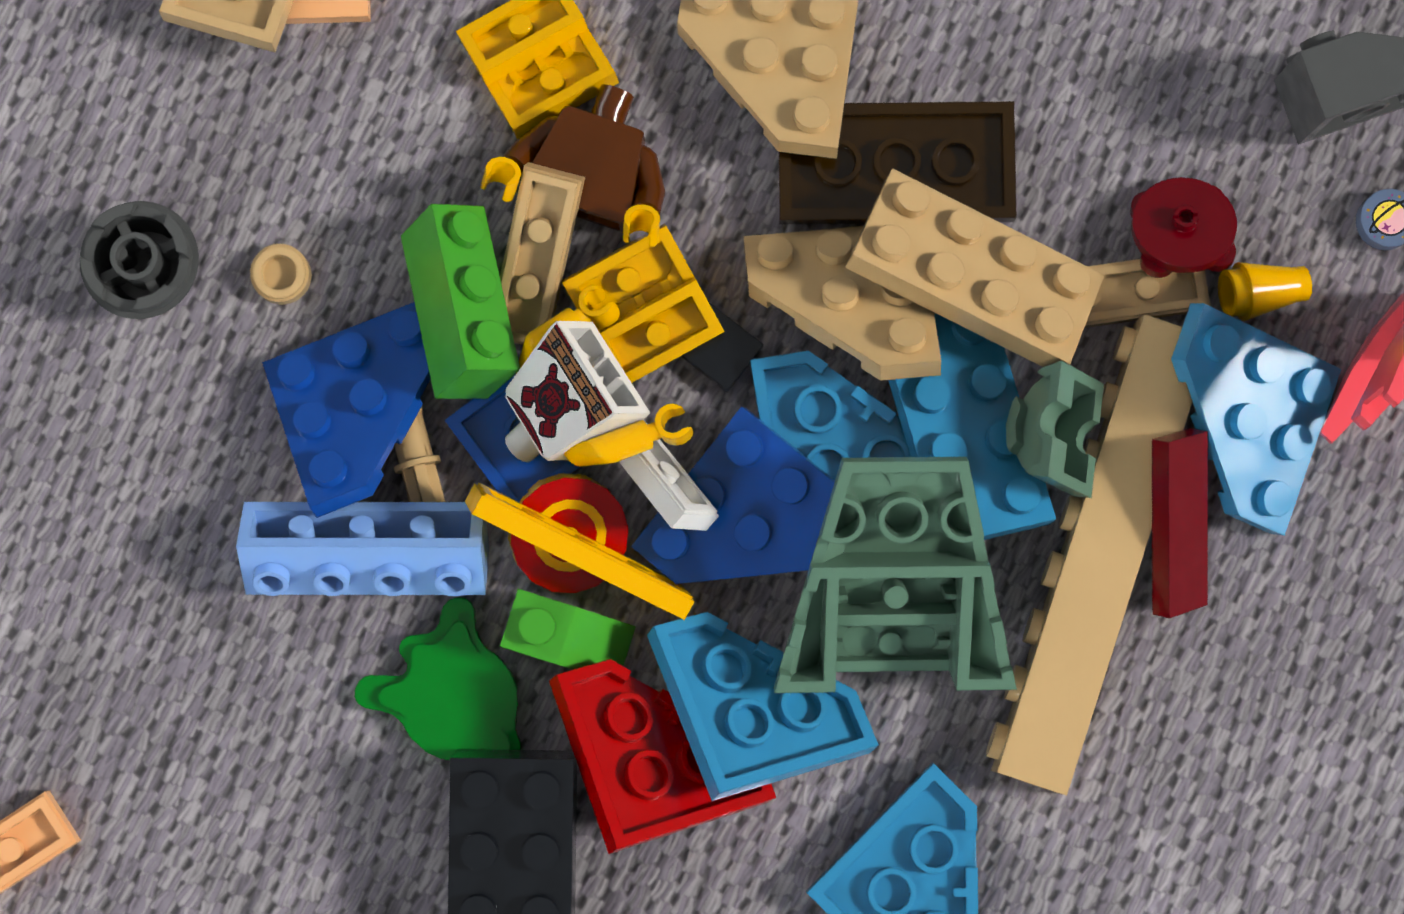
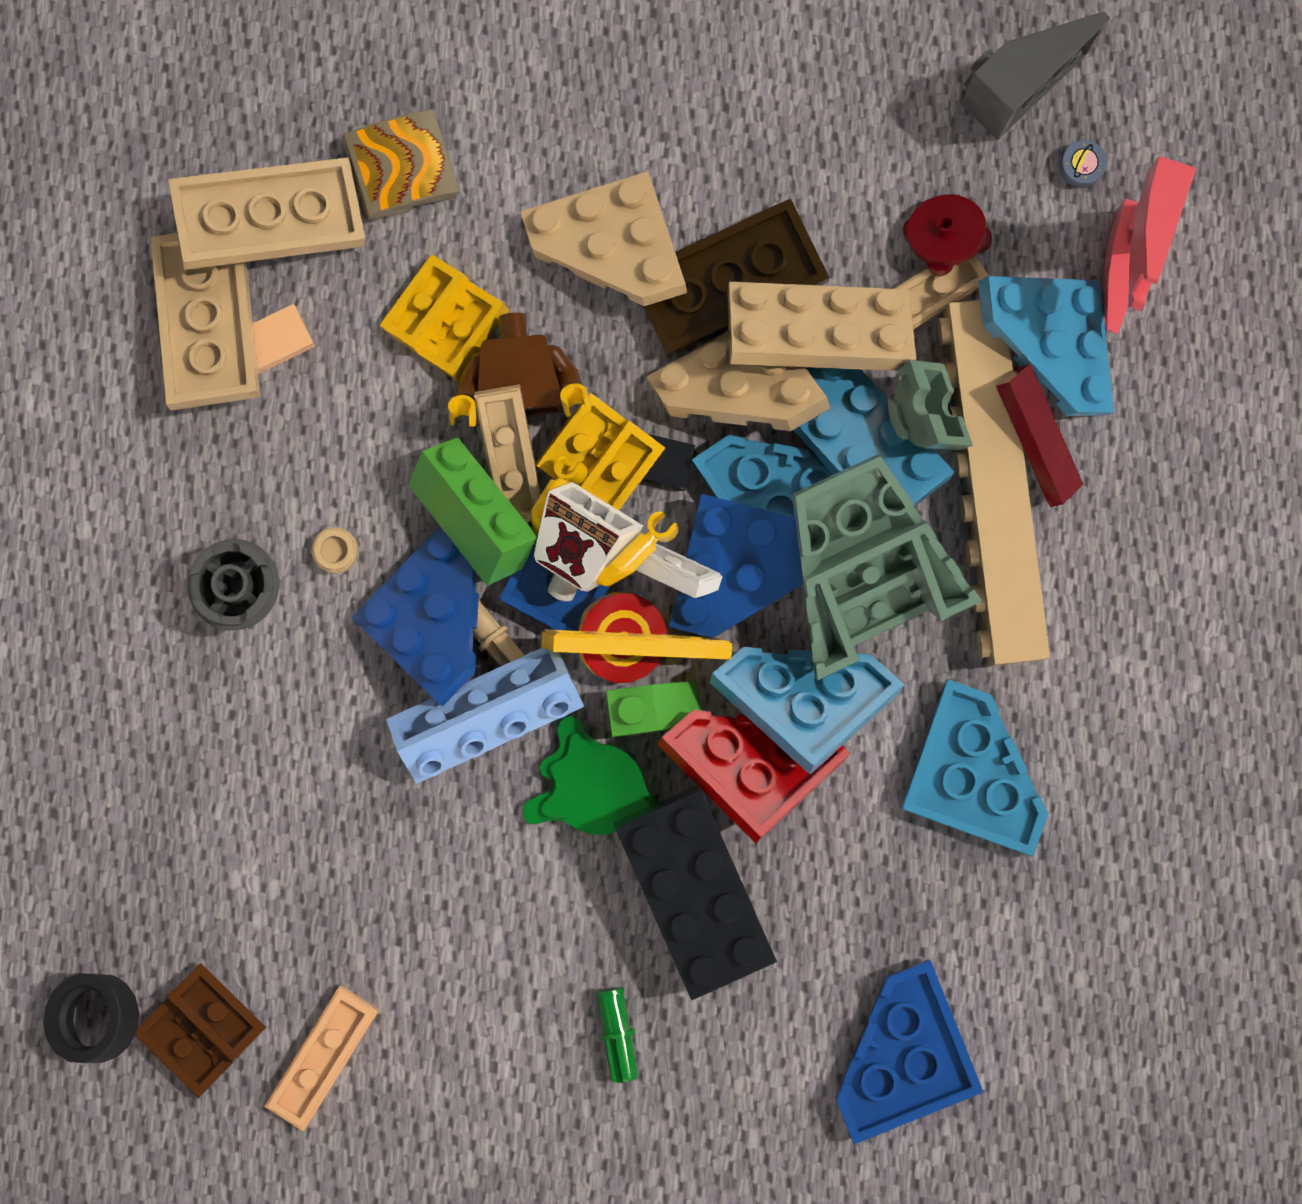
camera: 25 degrees left, 0 degrees up
(1259, 289) = (1018, 251): yellow cone -> none

